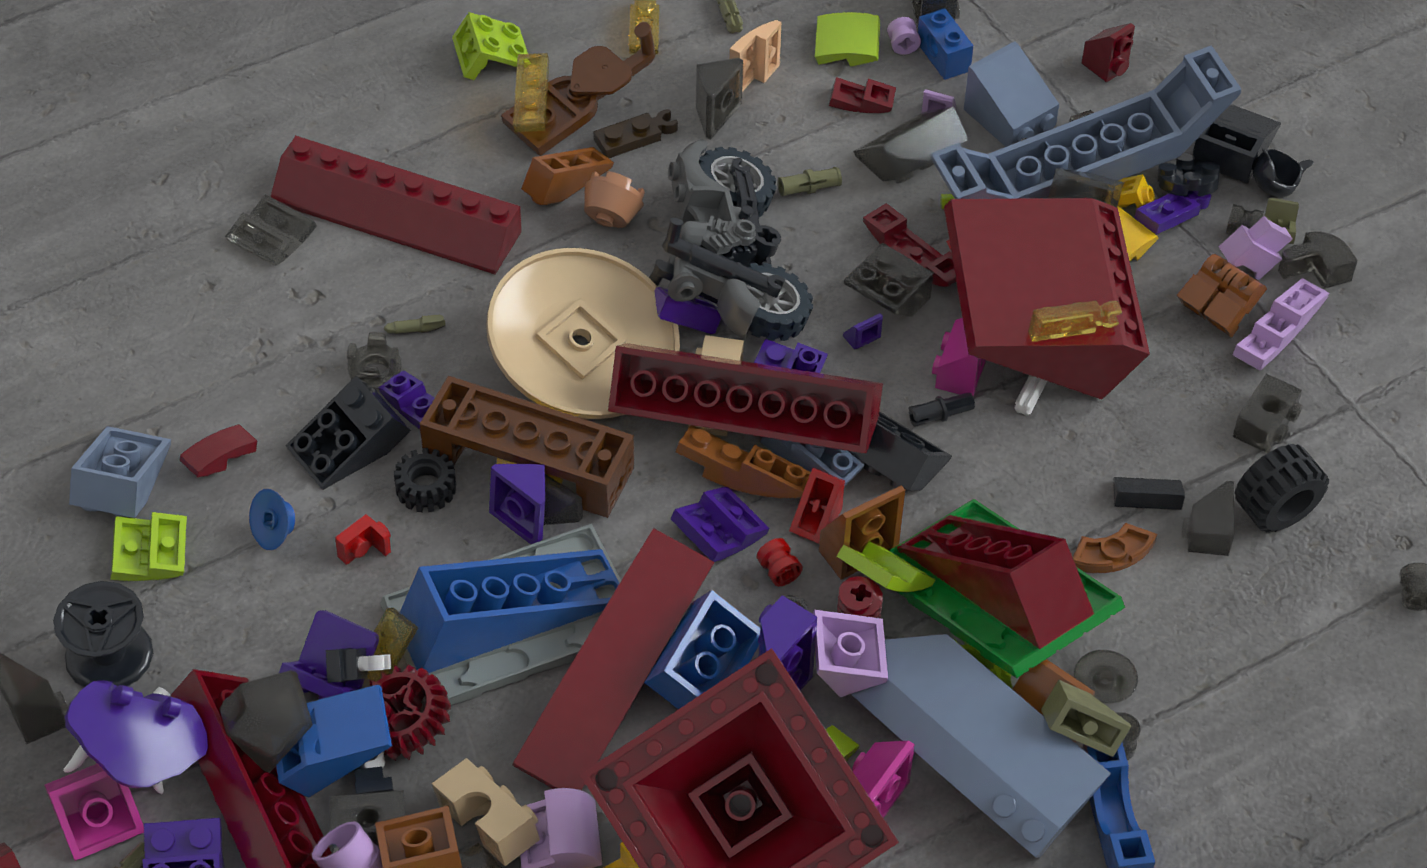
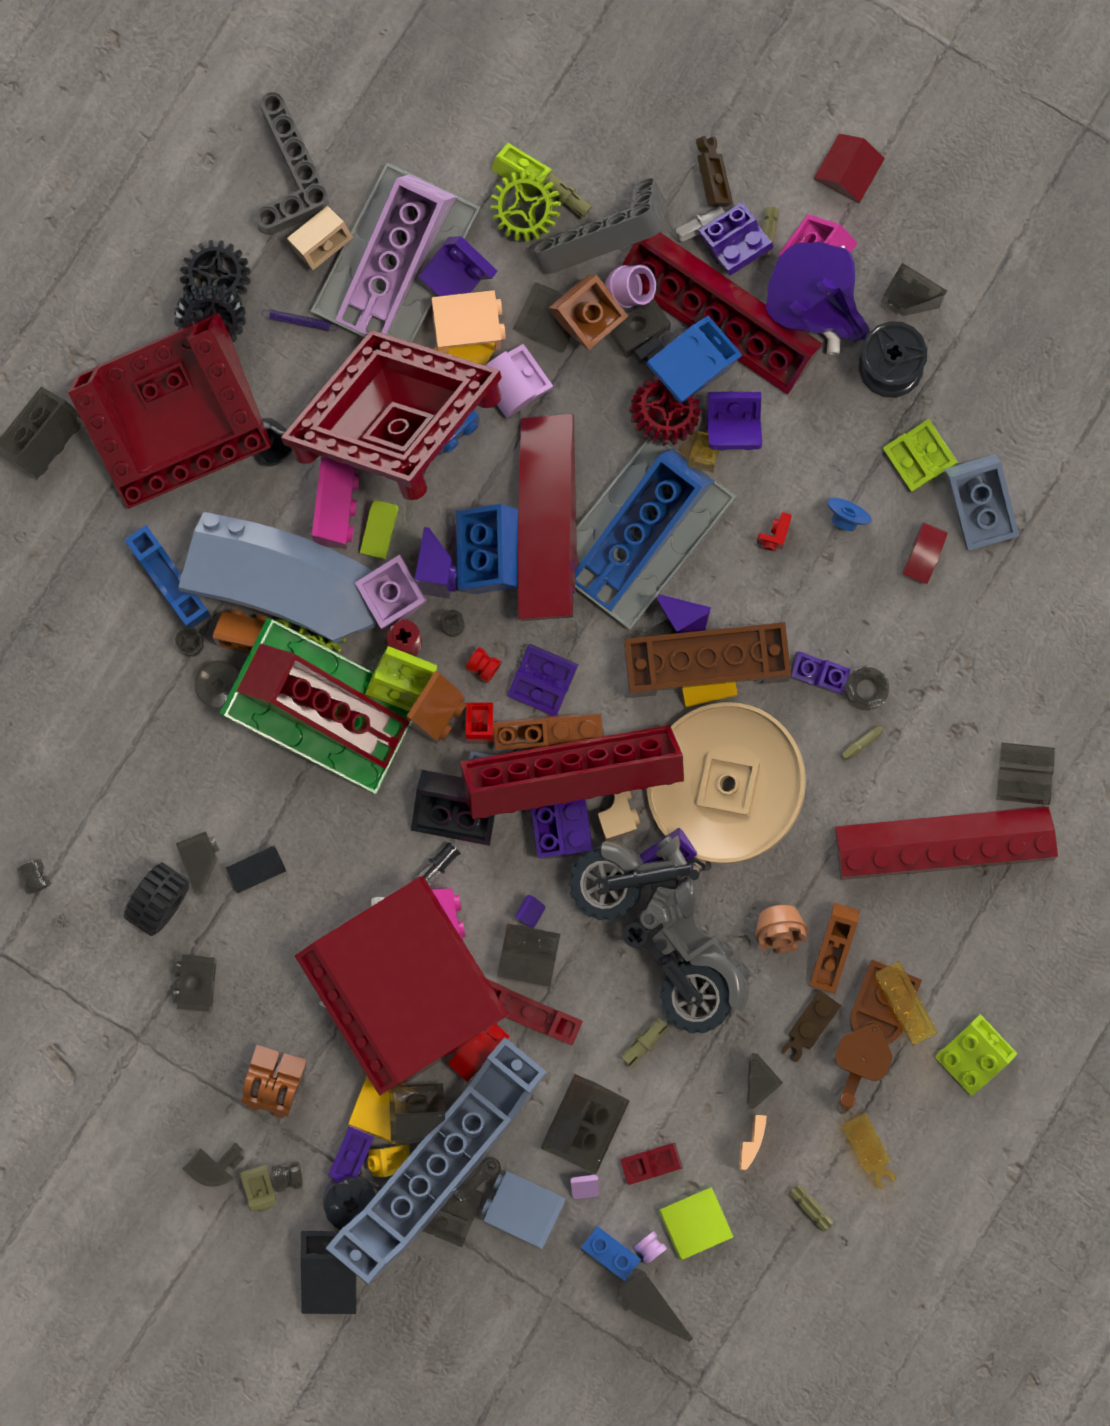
camera: 155 degrees right, 30 degrees up
(267, 717) = (739, 345): clear smoke slope -> none
(347, 434) = (844, 615): black slope -> none
(353, 664) = (717, 419): black piece -> none
(430, 494) = (769, 590): black tyre -> none
(471, 792) = (546, 362): tan arch -> none
(1072, 319) = (353, 937): clear yellow plate -> none
(1084, 718) = (212, 610): olive slope -> none
(1109, 51) = (472, 1313): dark red slope -> none
(1115, 551) = (258, 803): dark orange tile -> none
(1256, 247) = (265, 1135): lavender piece -> none
(1278, 172) = (279, 1243): black hair -> none
(1281, 324) = (220, 1085): lavender slope -> none

